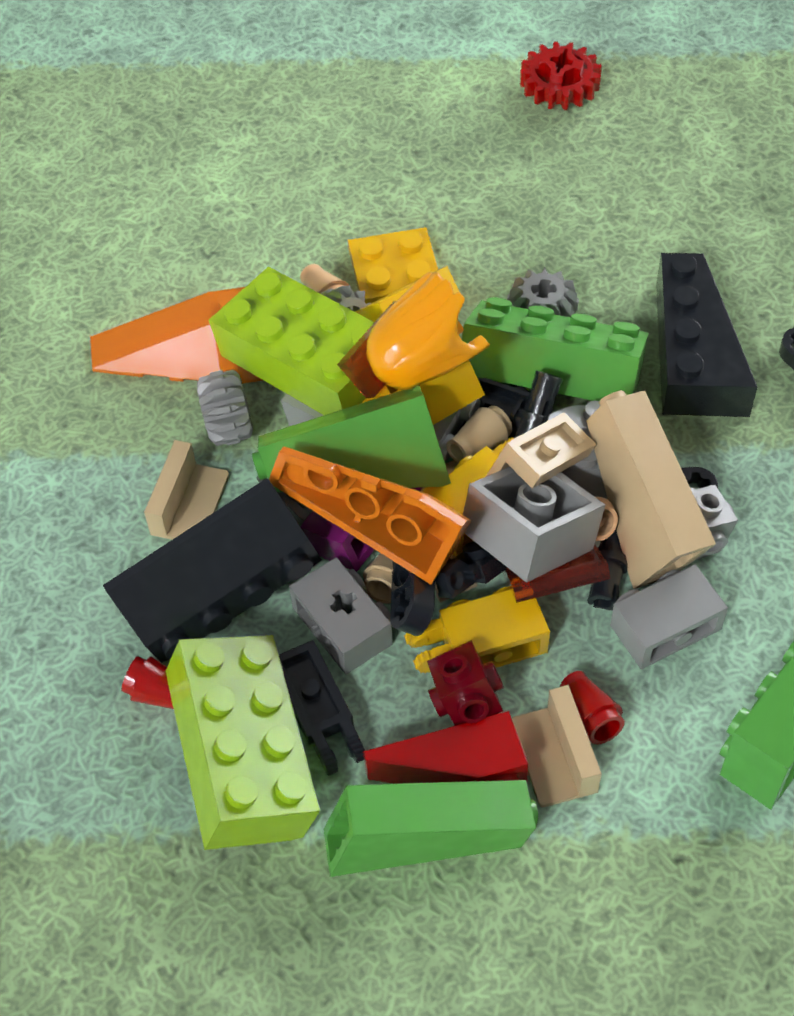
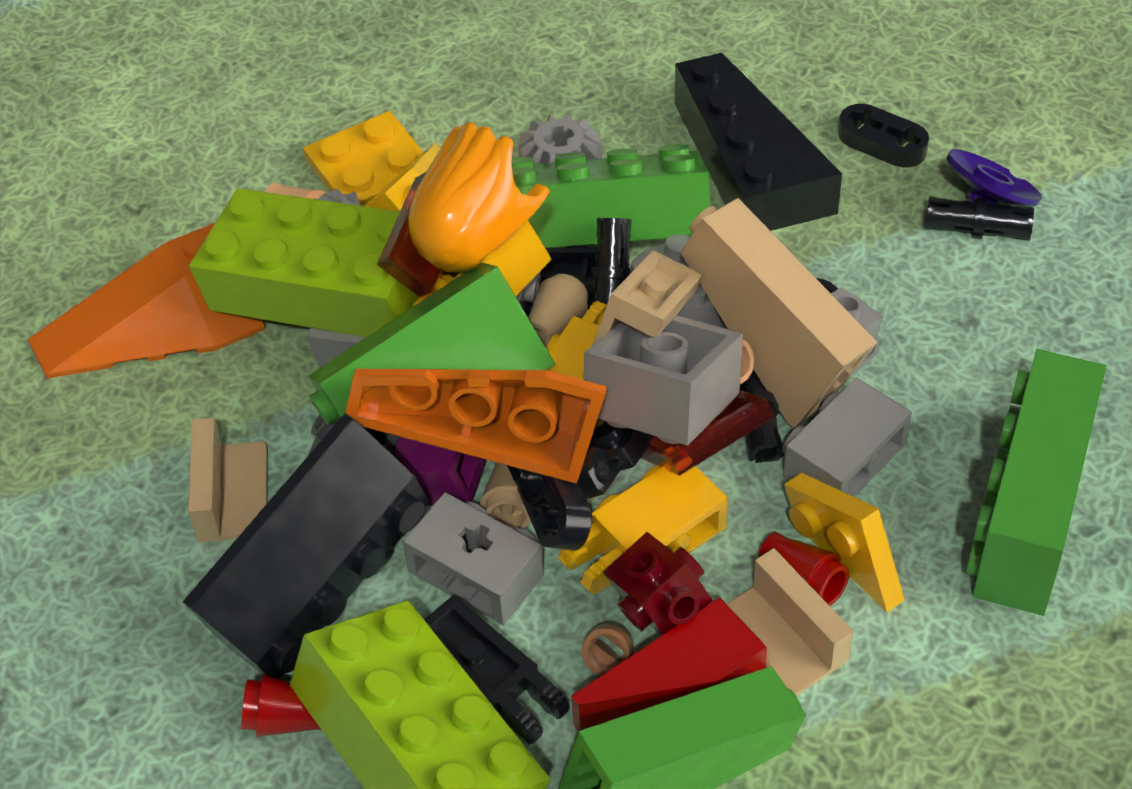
camera: 20 degrees left, 5 degrees down
(224, 407) = (237, 367): light grey gear -> none
(407, 718) = (600, 656): none -> medium nougat hinge
(634, 692) = (849, 529): none -> yellow wing

